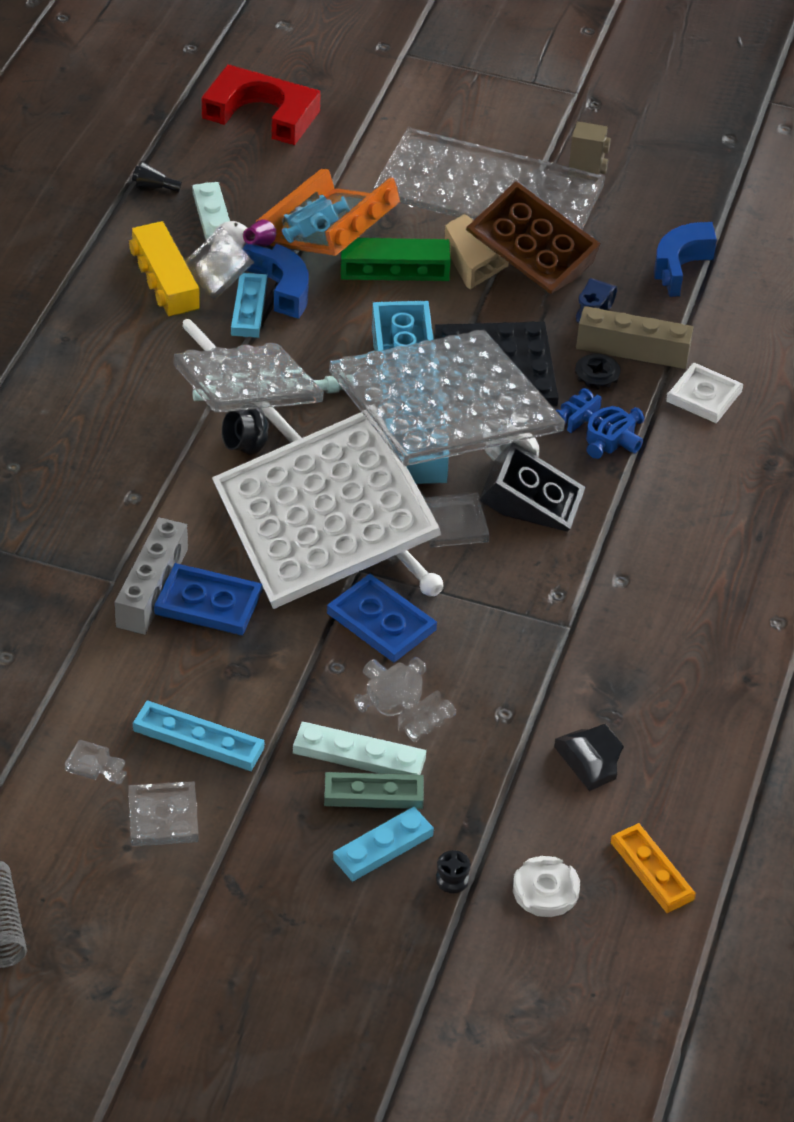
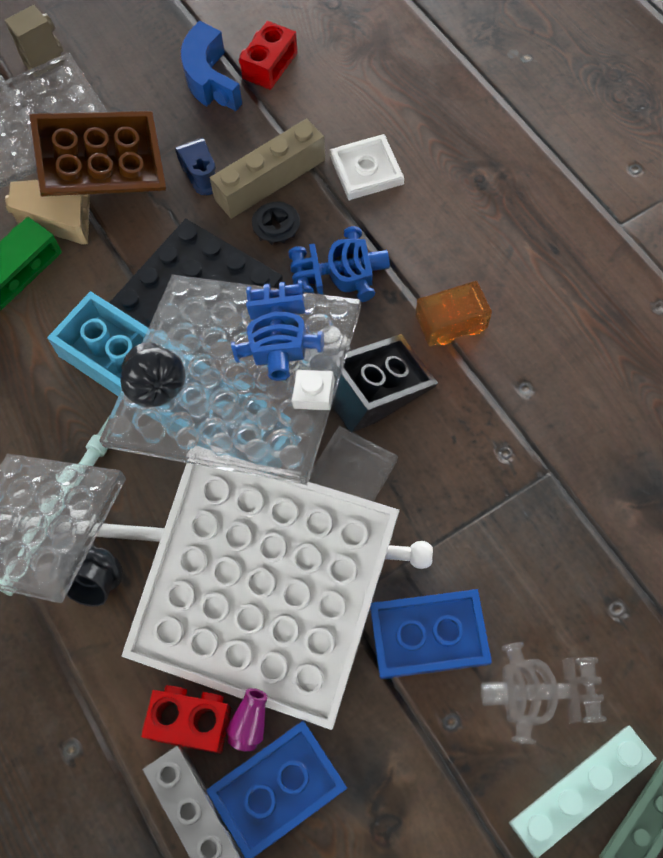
camera: 45 degrees left, 20 degrees up
(207, 532) = (185, 729): none -> red brick
(235, 557) = (247, 724): none -> magenta cone
(392, 346) = (152, 375): none -> black piece
(467, 425) = (313, 390): none -> white plate
(492, 389) = (276, 330): none -> blue piece
(631, 502) = (453, 313): none -> clear orange brick
(734, 280) = (268, 55): none -> red brick

